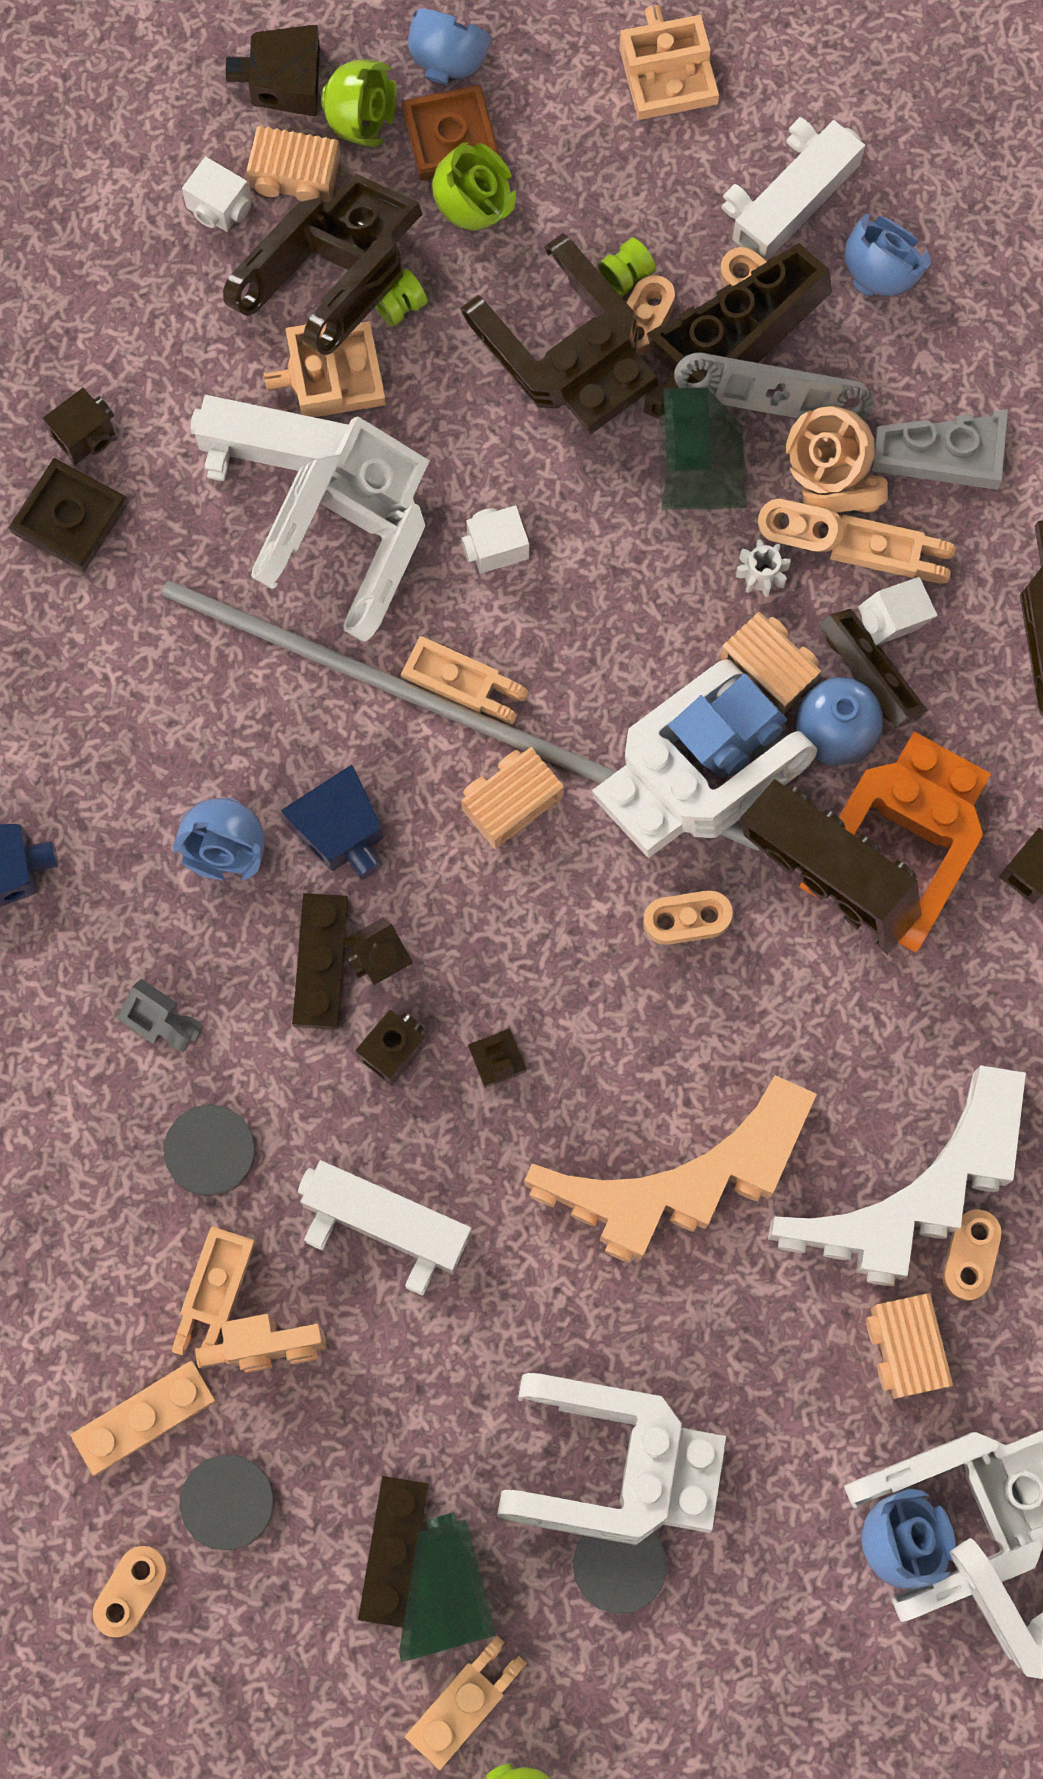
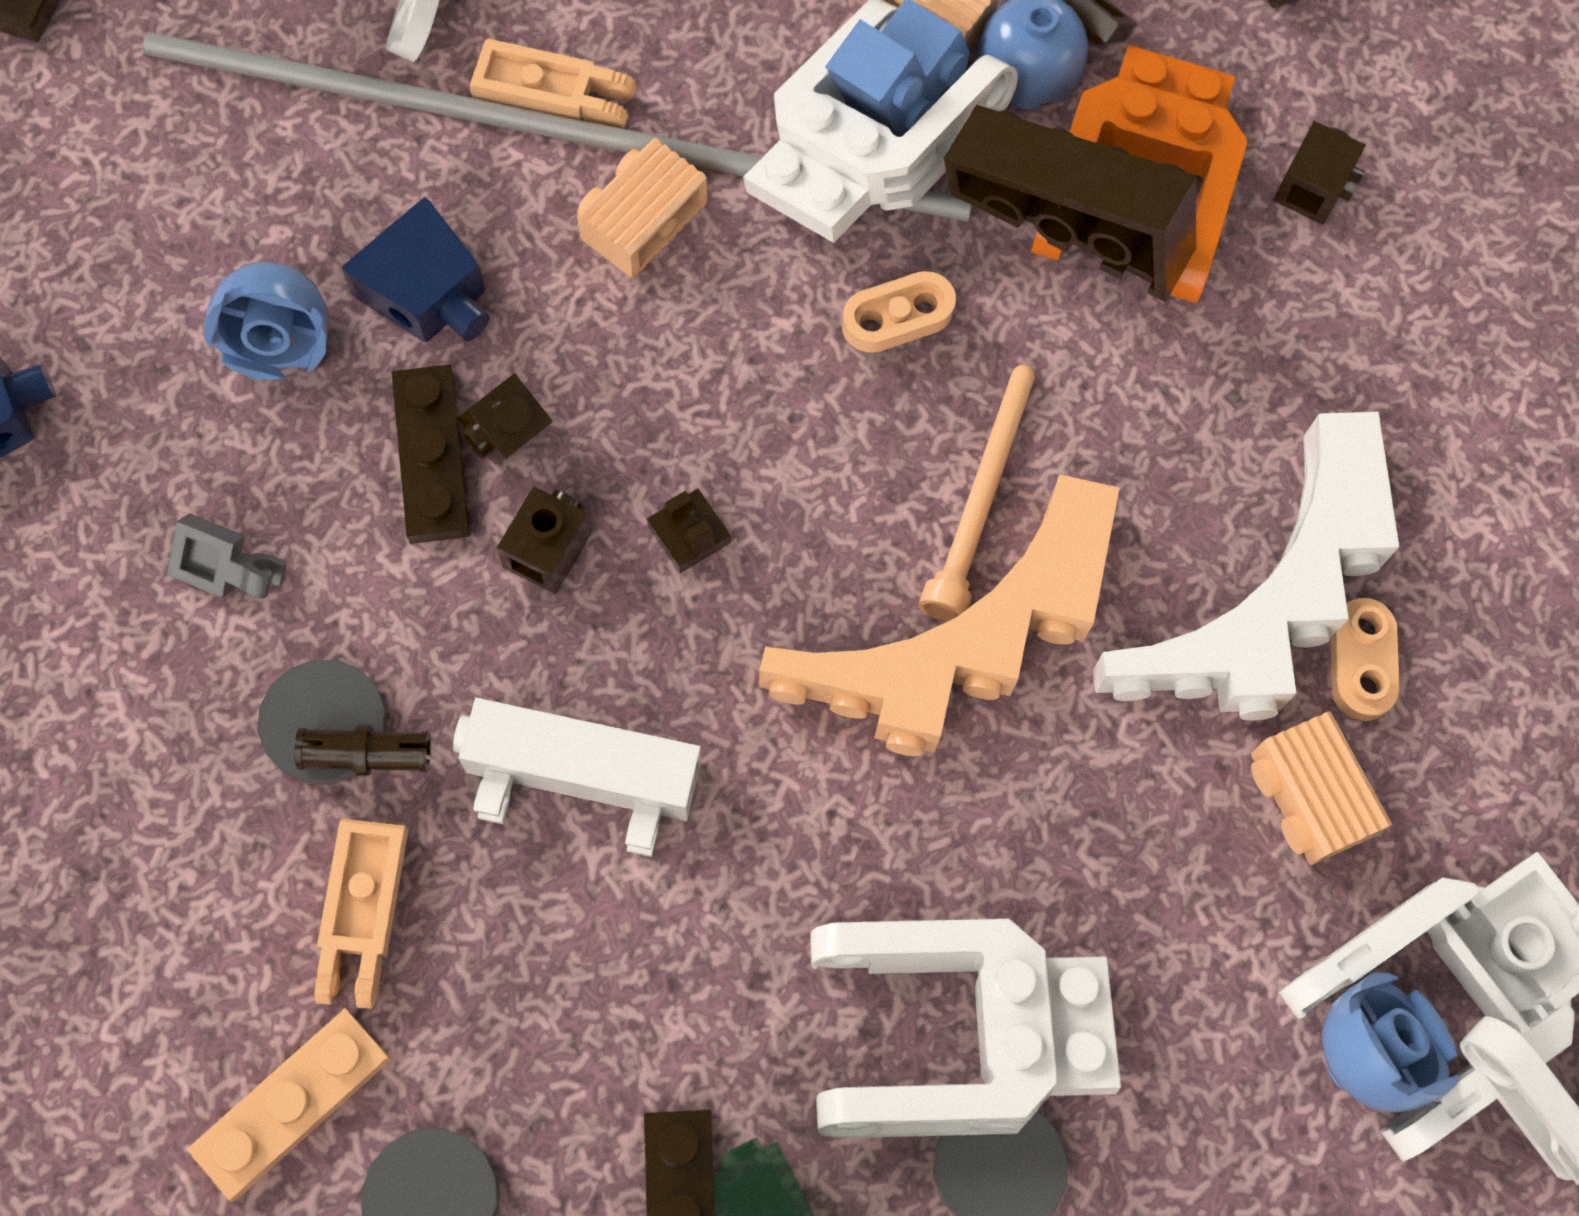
camera: 15 degrees left, 5 degrees down
(235, 1180) = (362, 750): none -> dark brown pin
(256, 1342) = (429, 960): light nougat plate -> none
(676, 1143) = (948, 592): none -> light nougat piece

